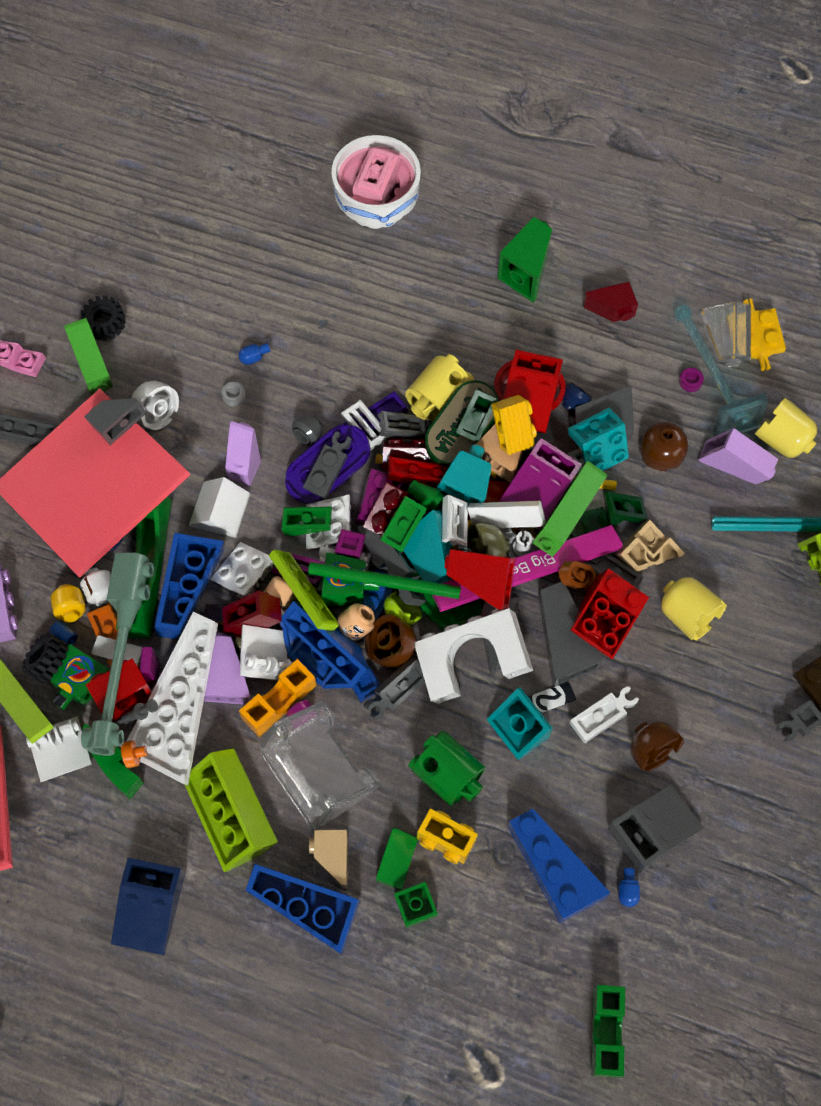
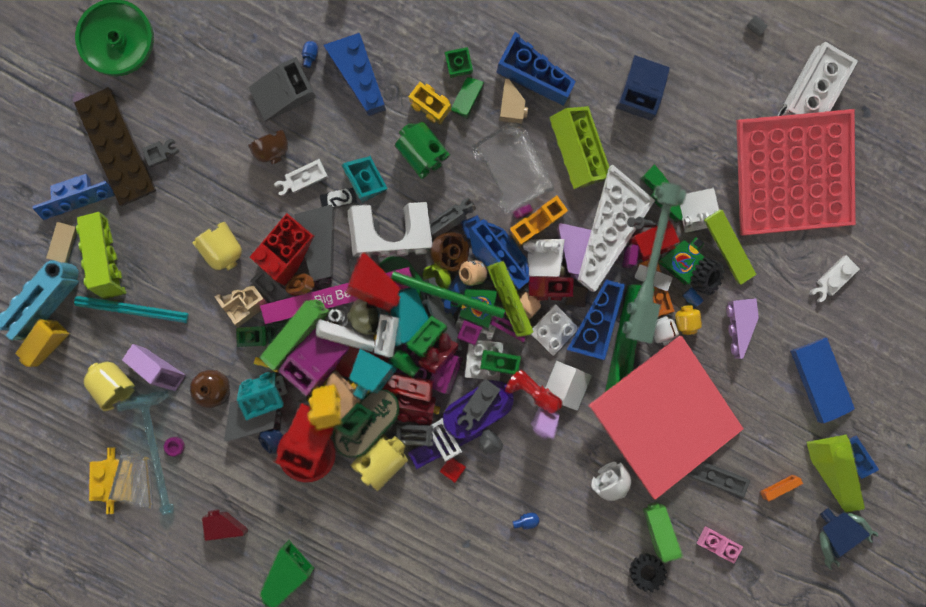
camera: 175 degrees left, 20 degrees up
(115, 417) = (646, 463): dark grey slope -> none
(131, 753) = (647, 191): orange tile -> none
(233, 393) = (546, 486): light grey tile -> none
(250, 483) = (542, 397): none -> red piece
(349, 396) = (452, 469): none -> red tile

